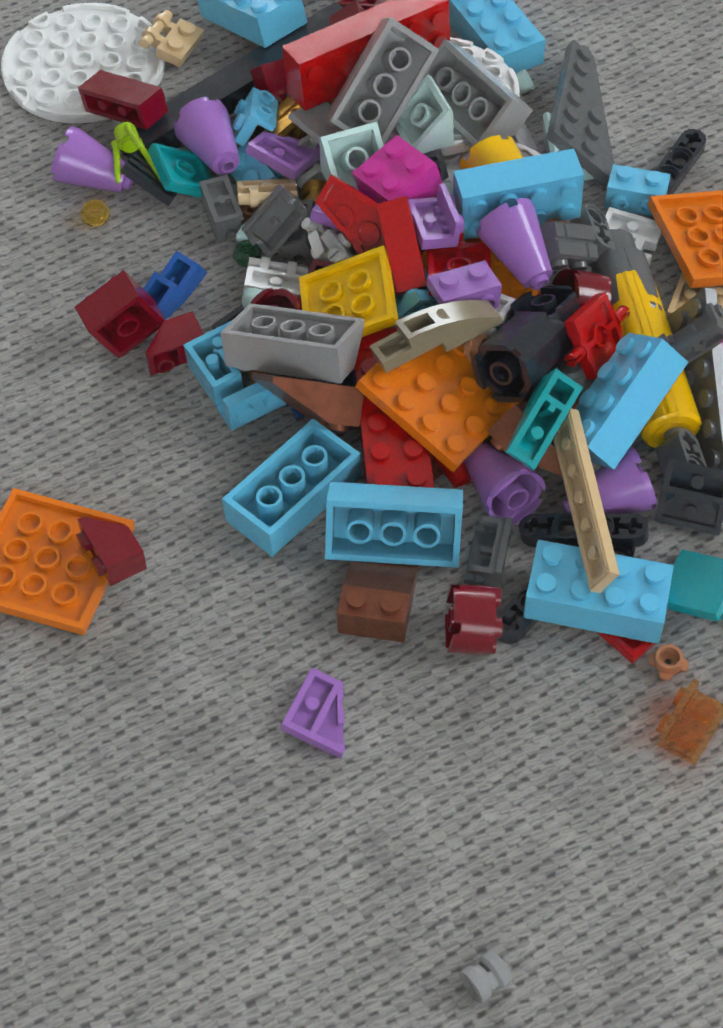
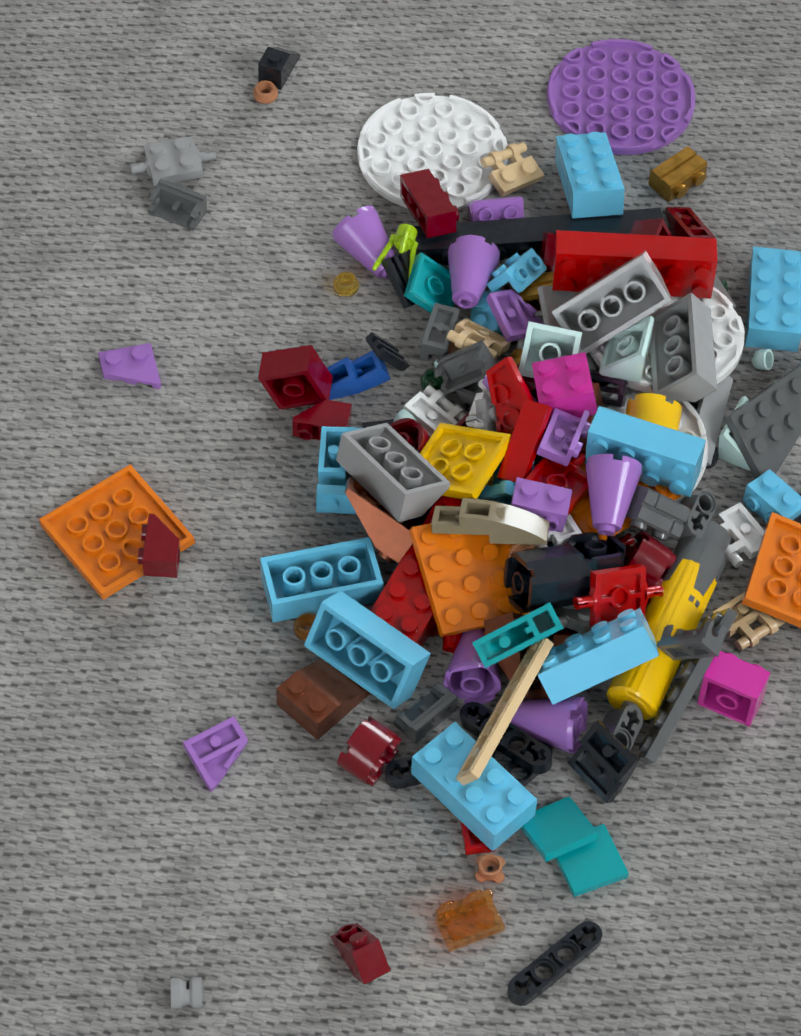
camera: 30 degrees right, 0 degrees up
(187, 248) = (386, 352): none -> black tile
(188, 75) = (496, 209): none -> medium lavender bracket
(308, 533) = (303, 620): none -> clear orange plate
(622, 820) = (361, 952): none -> dark red slope

